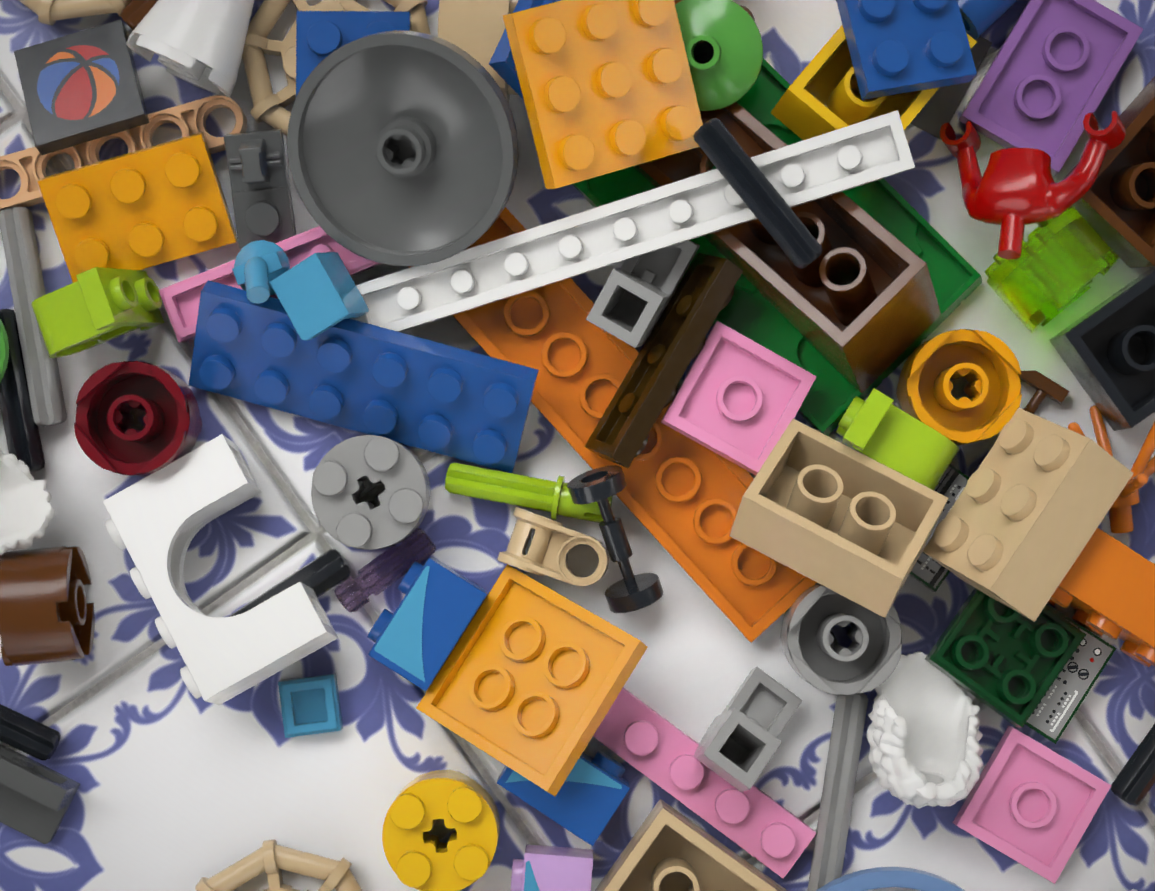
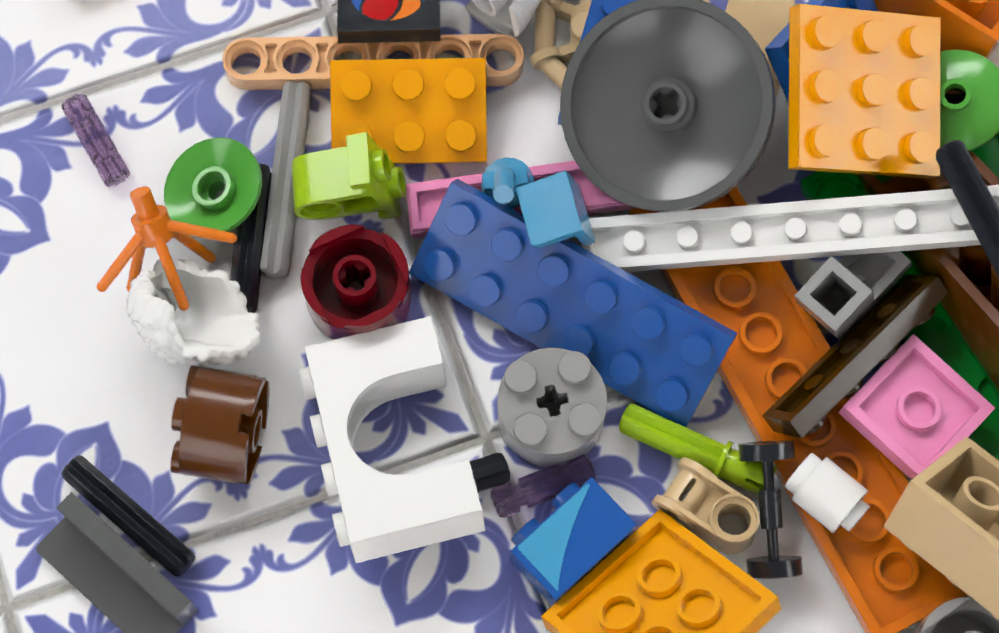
camera: 15 degrees right, 15 degrees down
(260, 186) = (523, 115): dark grey hinge -> none
(310, 705) = (437, 593): dark azure tile -> none
(668, 512) = (828, 493): none -> white brick

